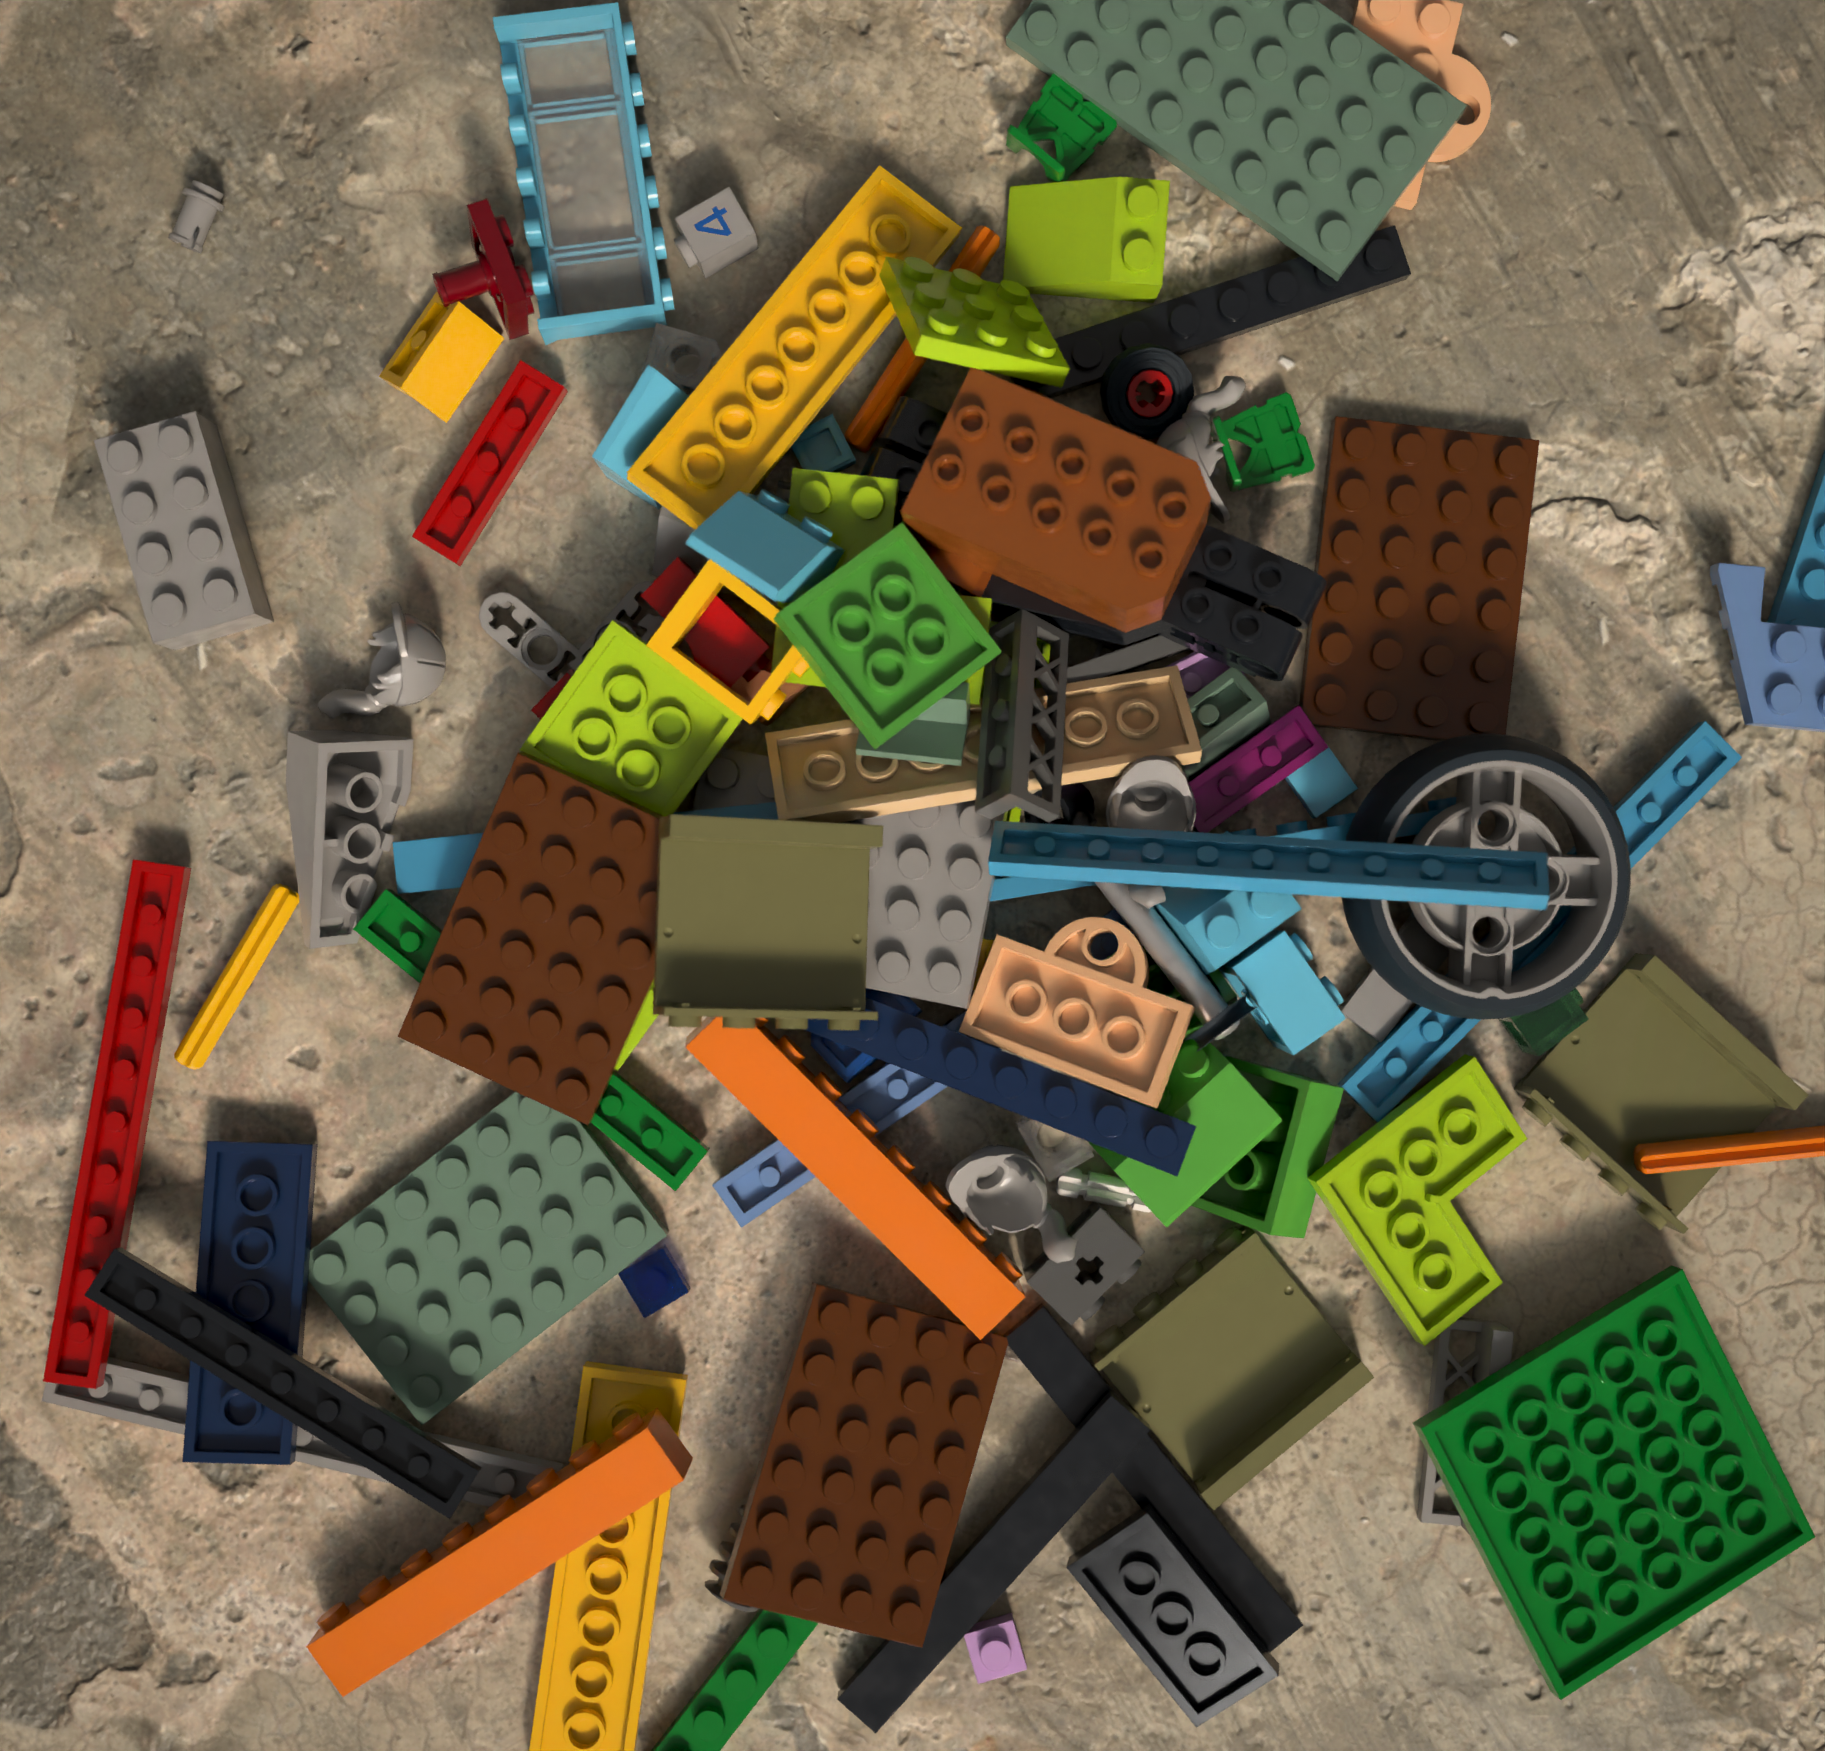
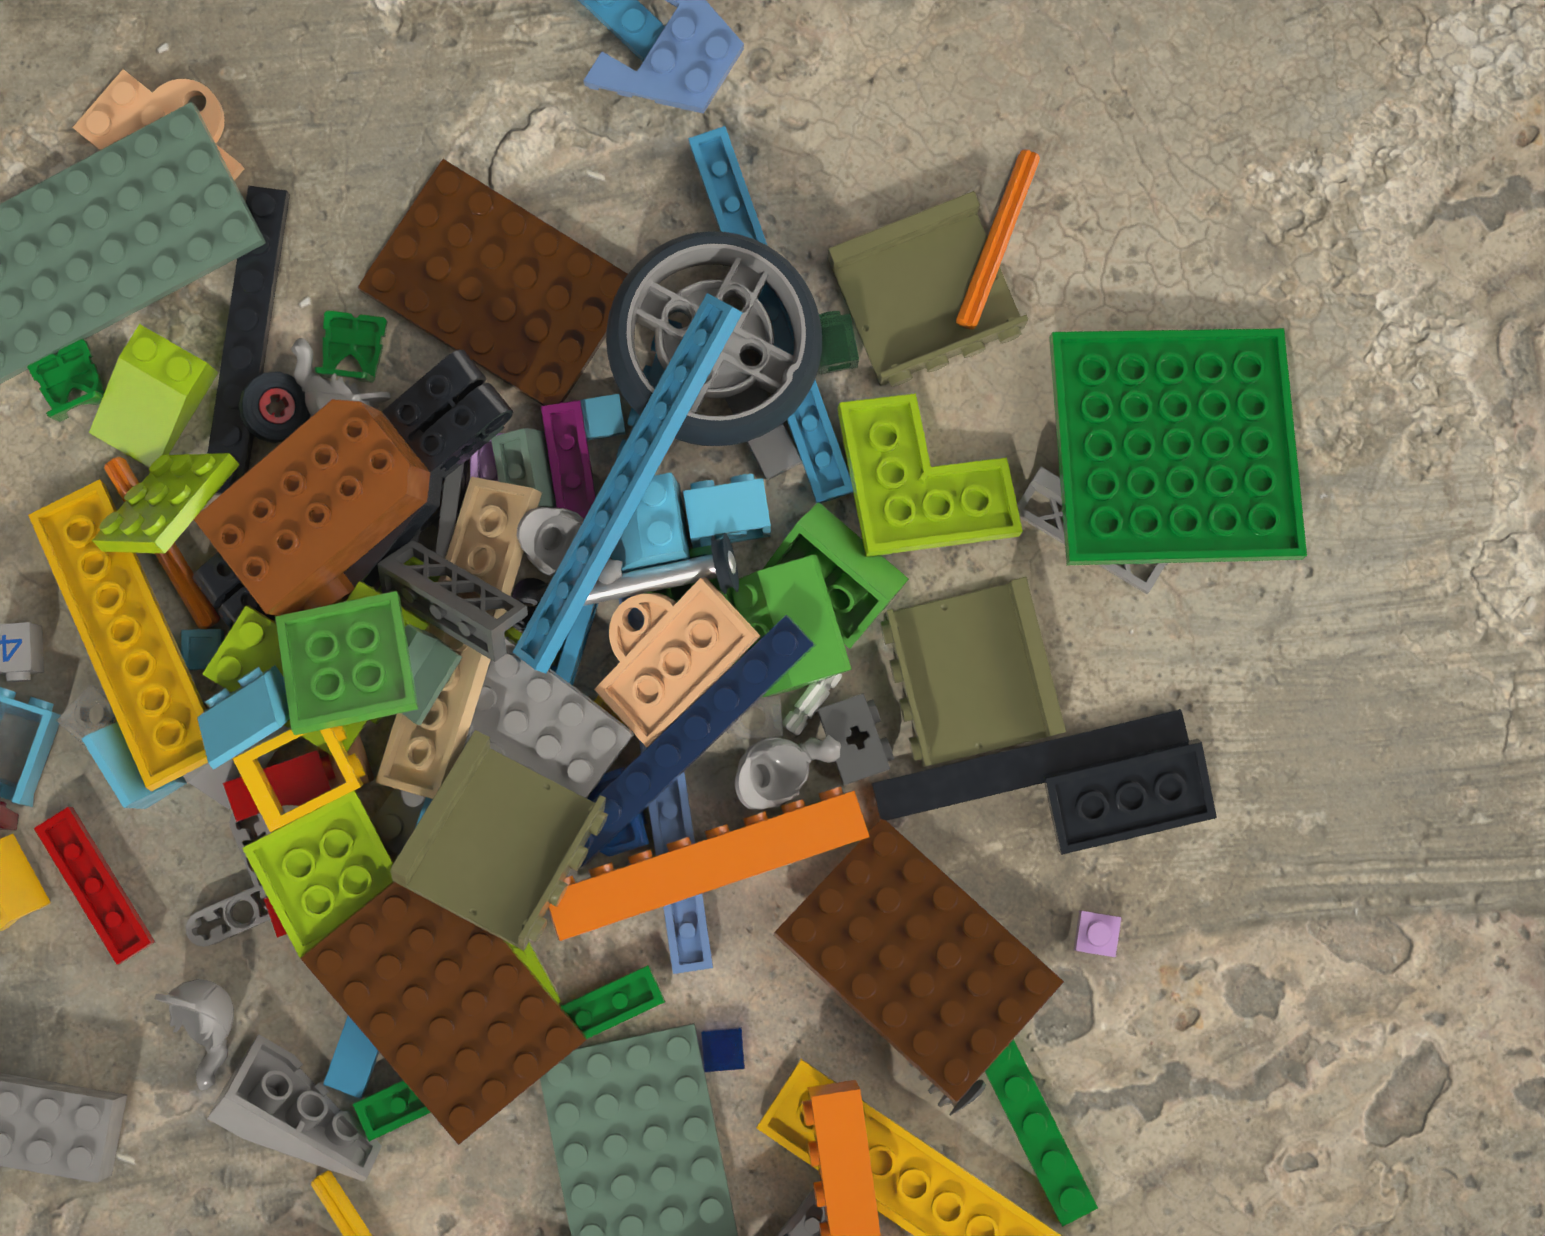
camera: 65 degrees left, 5 degrees down
(998, 1557) = (1033, 903): black tile -> none

